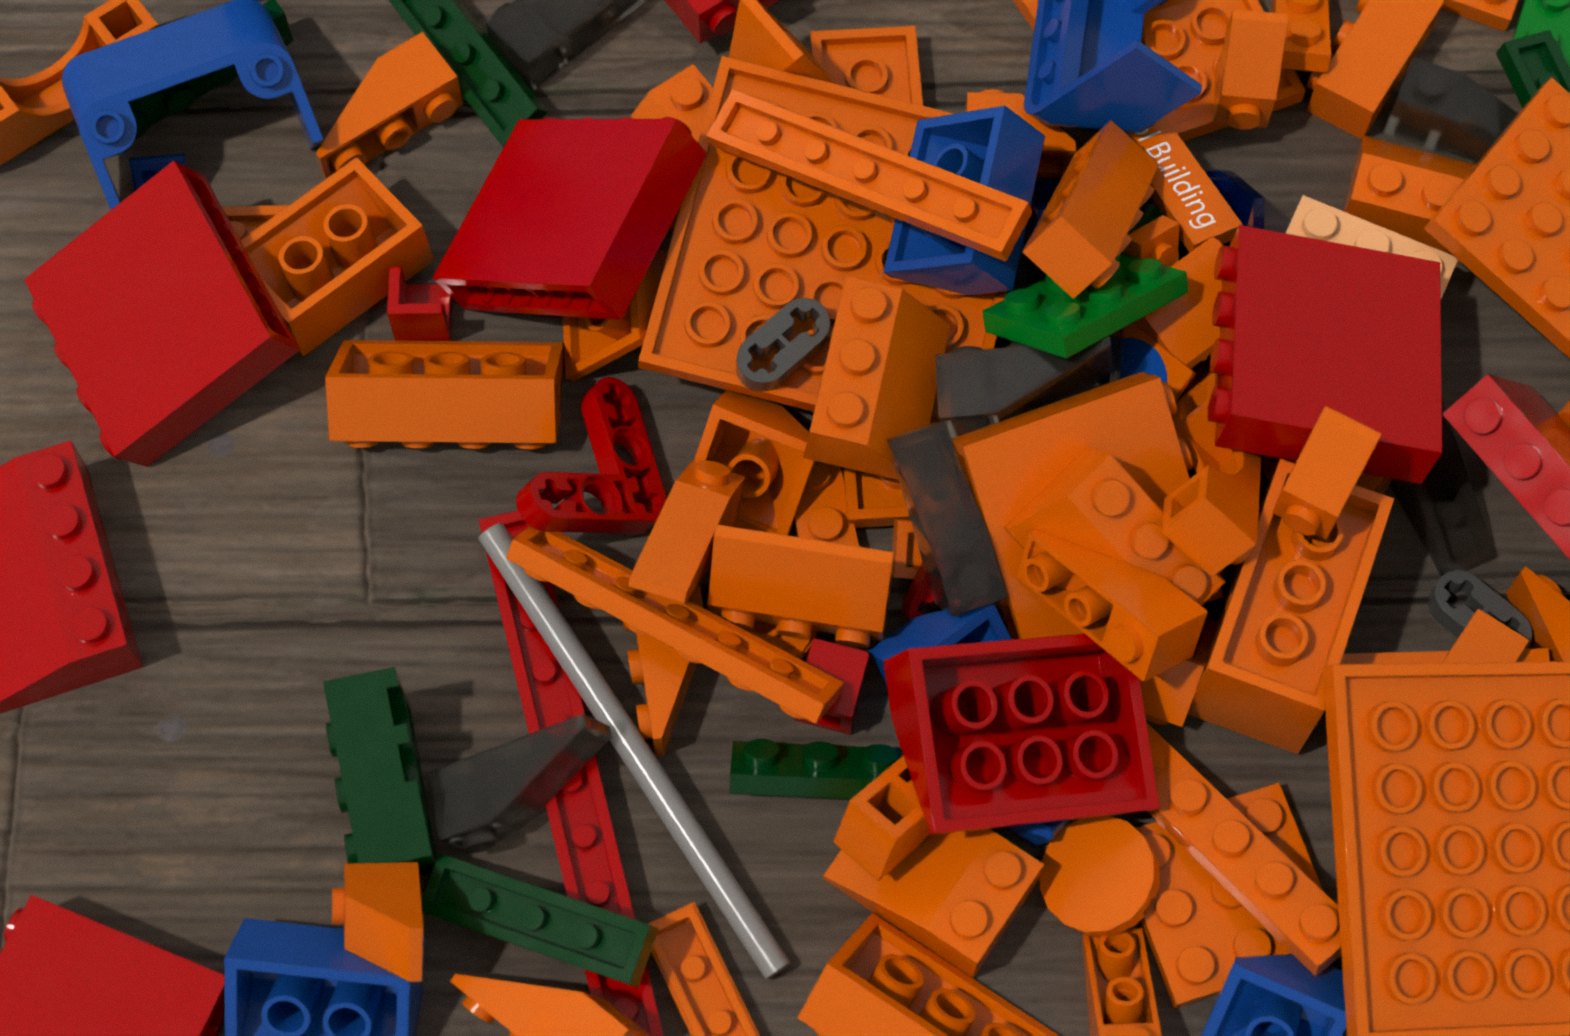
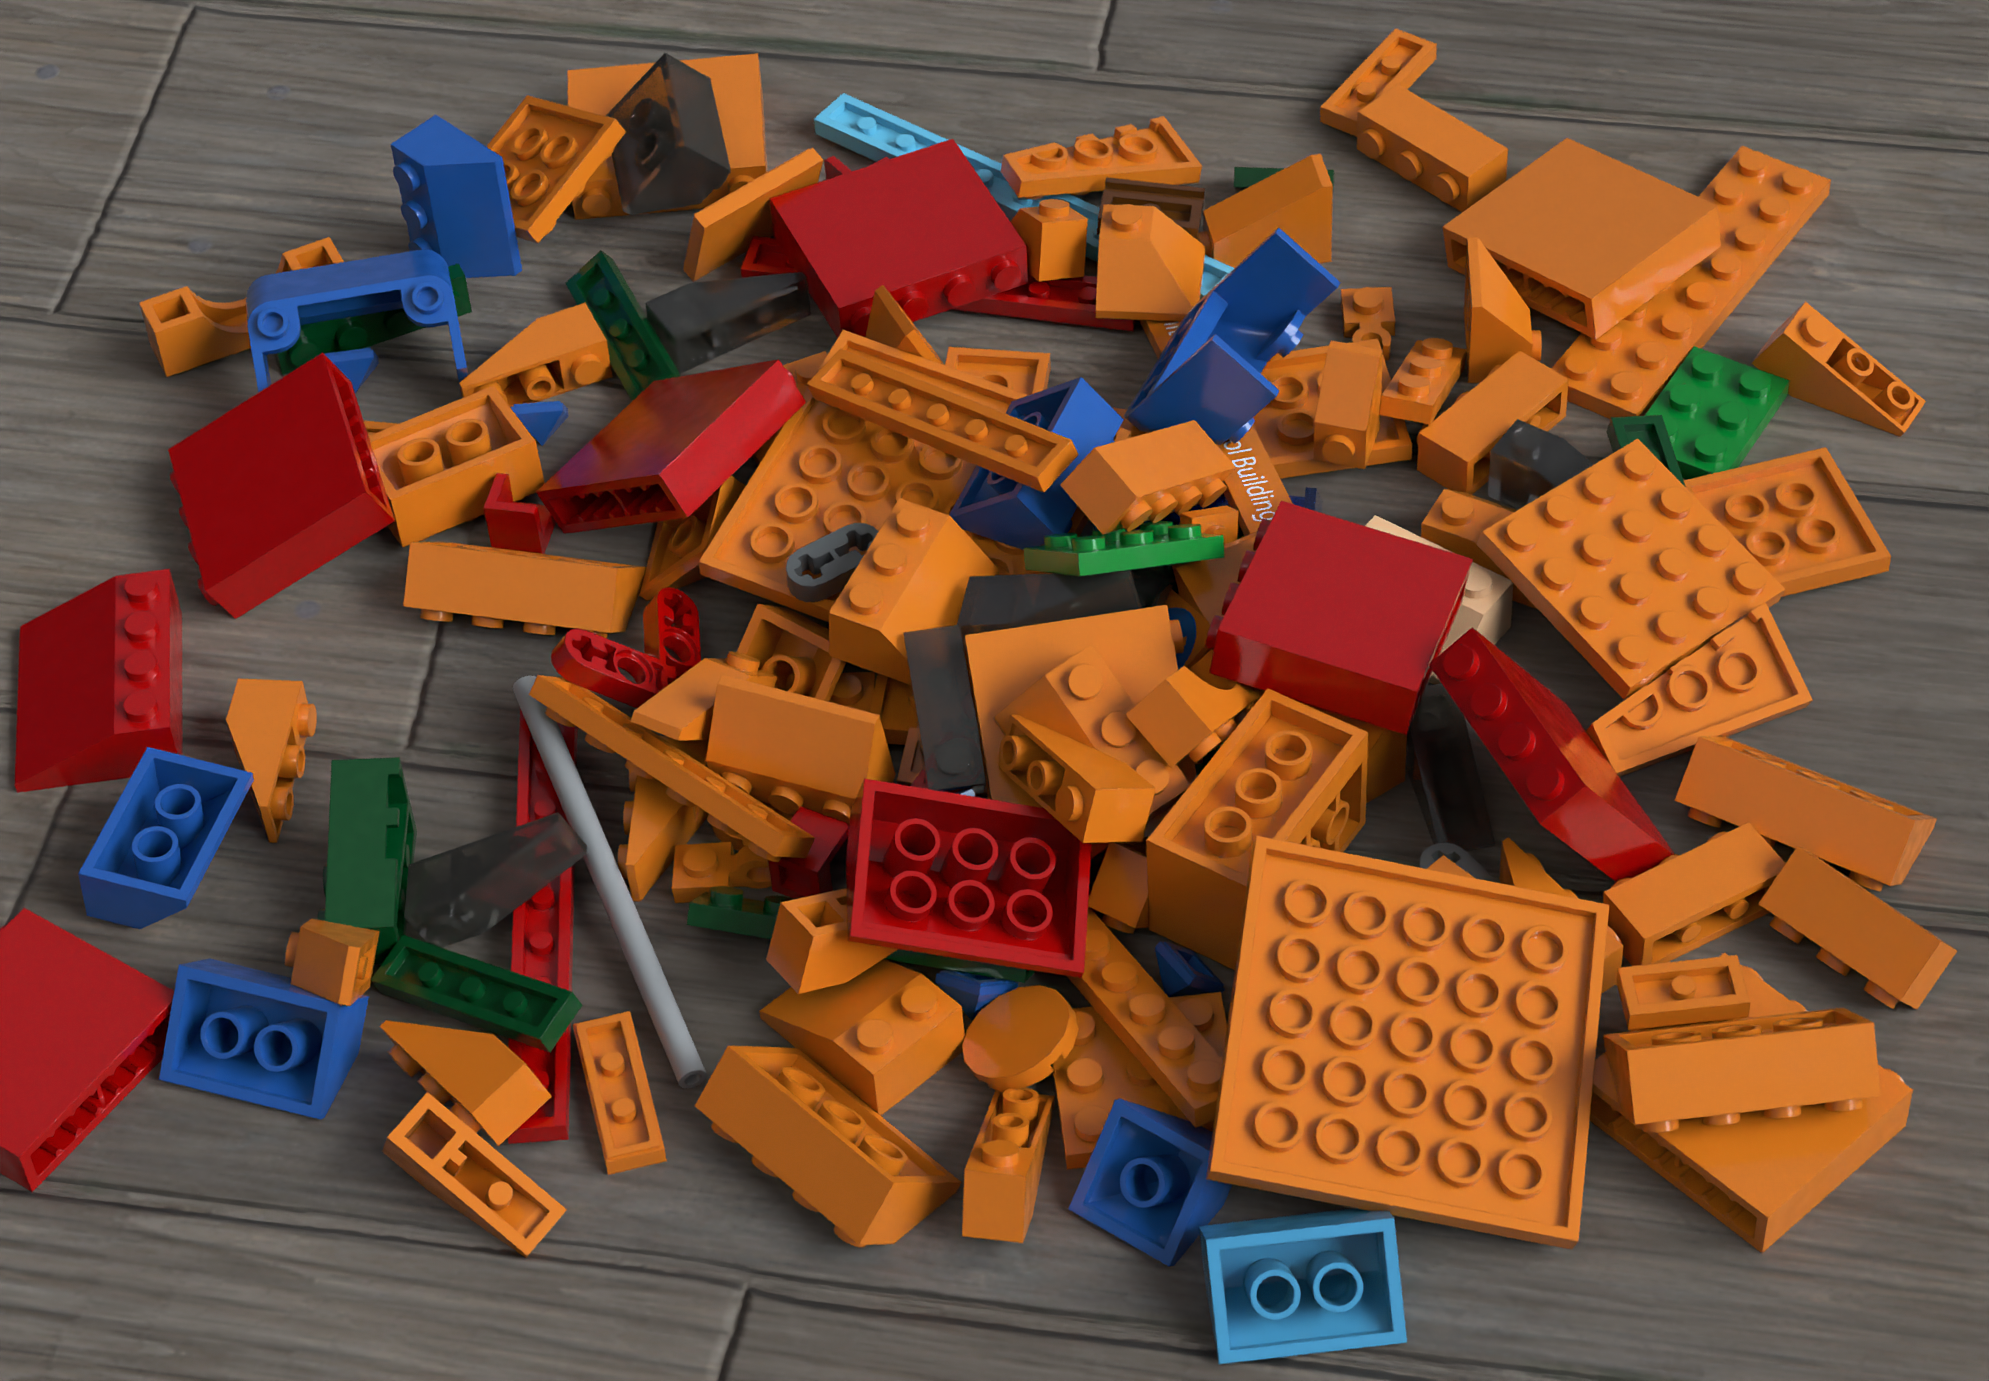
camera: 15 degrees right, 20 degrees down
(158, 780) = (160, 838): none -> blue slope
(187, 134) = (355, 364): none -> blue slope
(225, 617) = (268, 735): none -> orange slope
(405, 173) = (541, 418): none -> blue slope
(729, 714) = (715, 864): none -> orange plate
(1238, 764) = (1184, 972): none -> blue slope
(1325, 473) = (1293, 684): orange slope -> none

